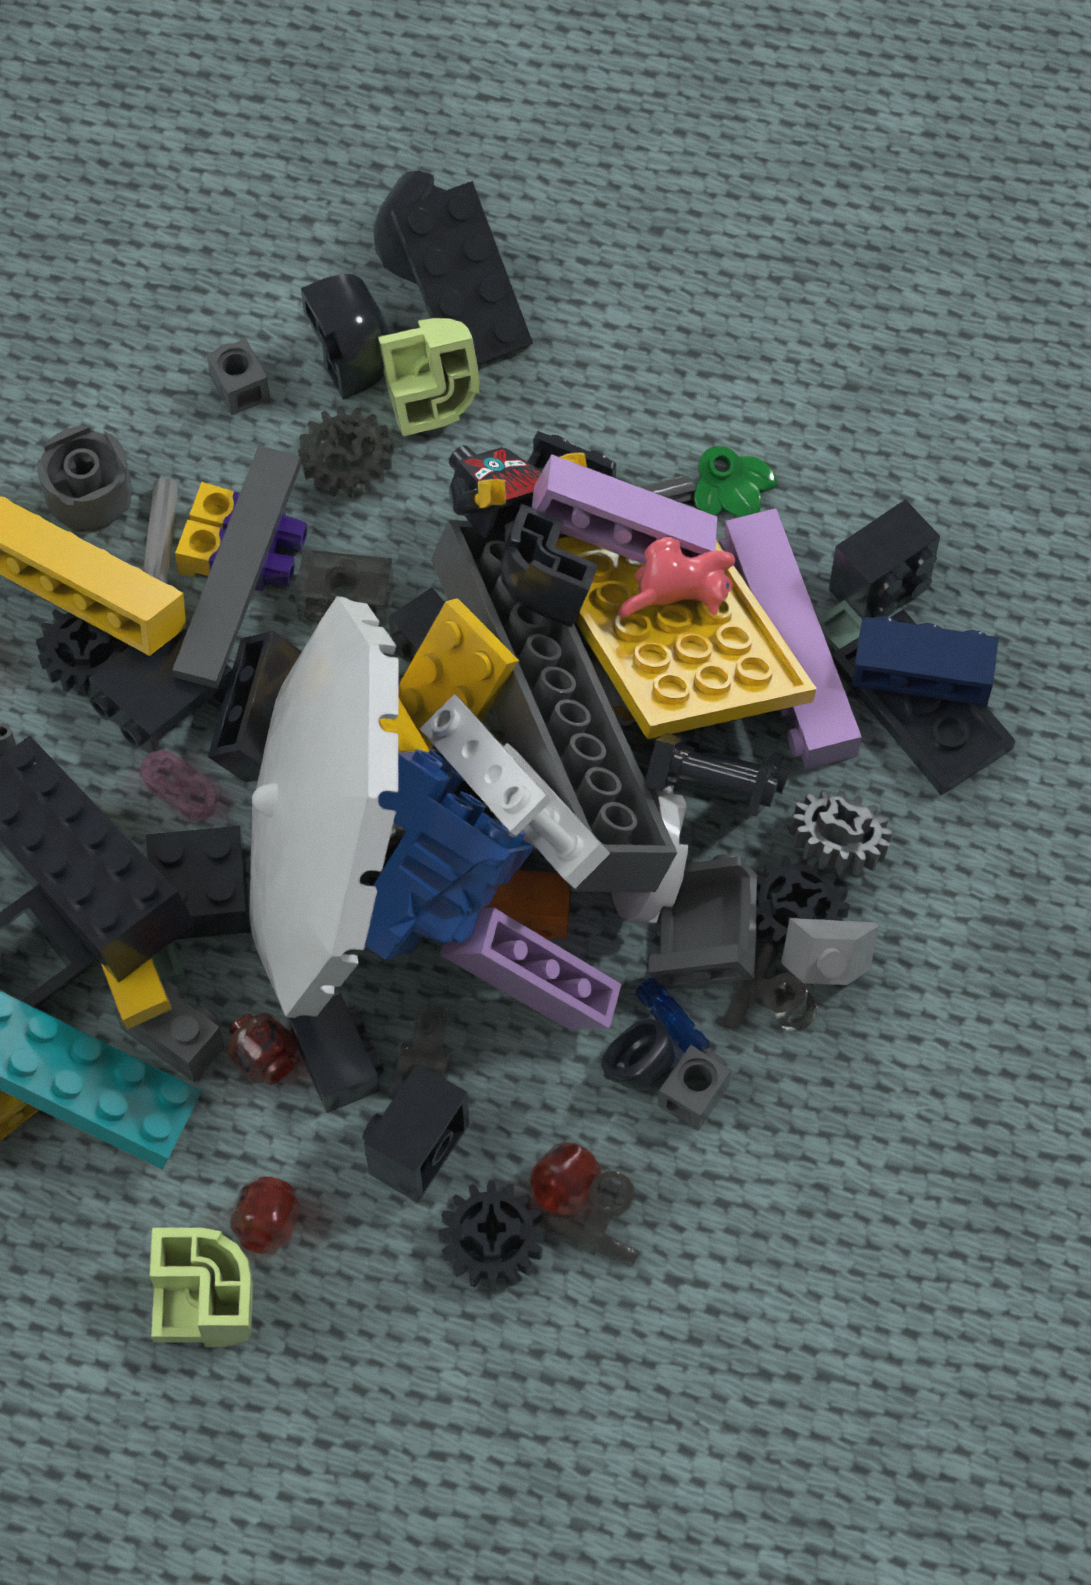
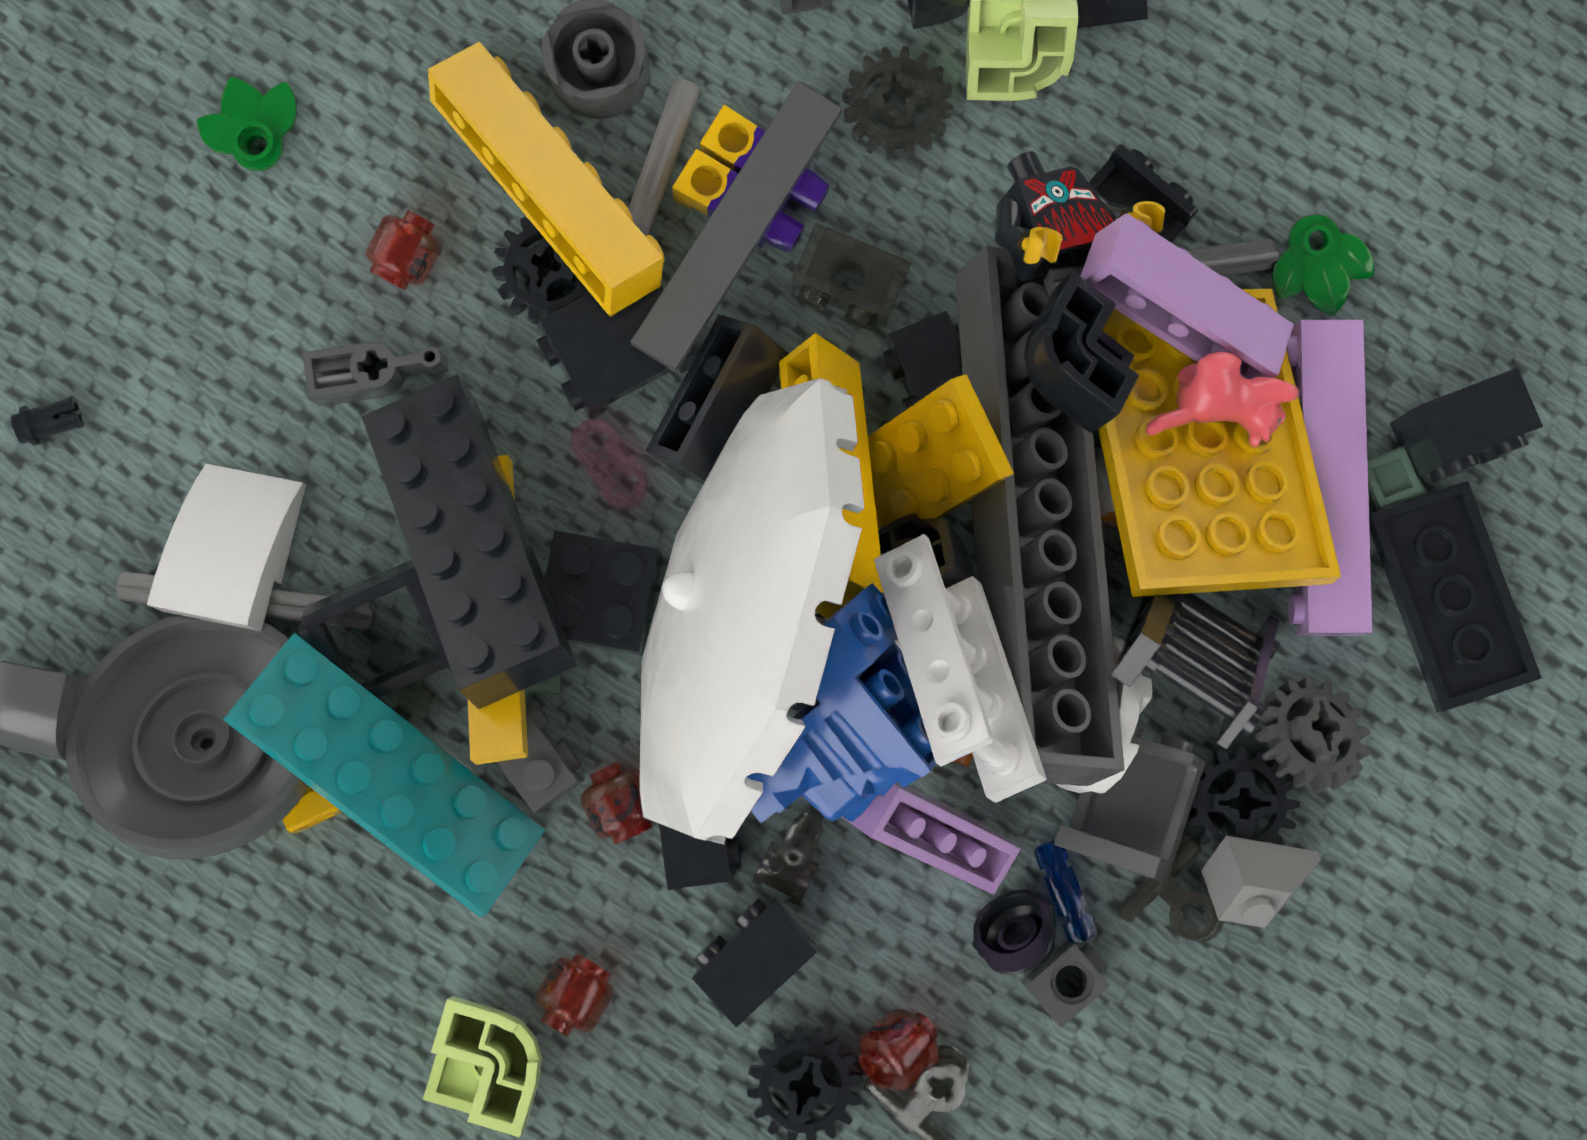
camera: 20 degrees right, 20 degrees up
(925, 660) = (1474, 560): dark blue brick -> none

